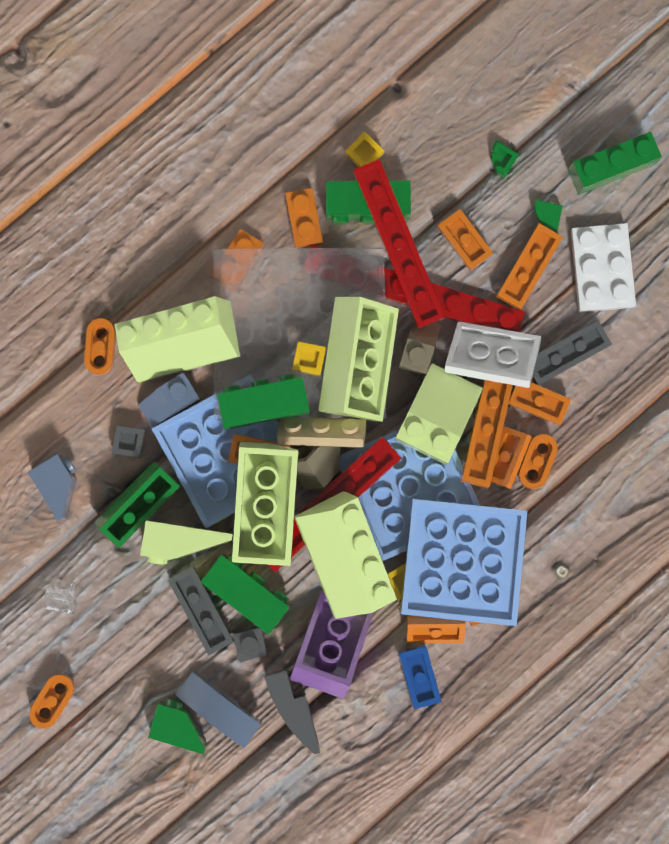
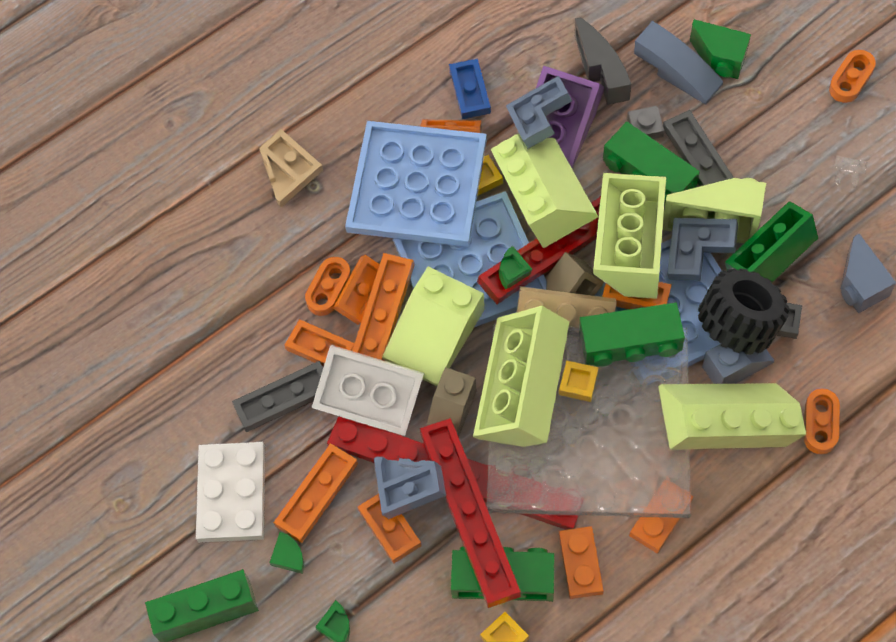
camera: 170 degrees left, 20 degrees down
(146, 438) = (743, 311): none -> black tyre
(209, 508) = (694, 237): none -> sand blue plate
(360, 635) = (532, 108): none -> sand blue plate
(371, 466) = (513, 268): none -> green tile
(452, 267) = (407, 484): none -> sand blue wing
(588, 586) = (288, 166): none -> tan wing

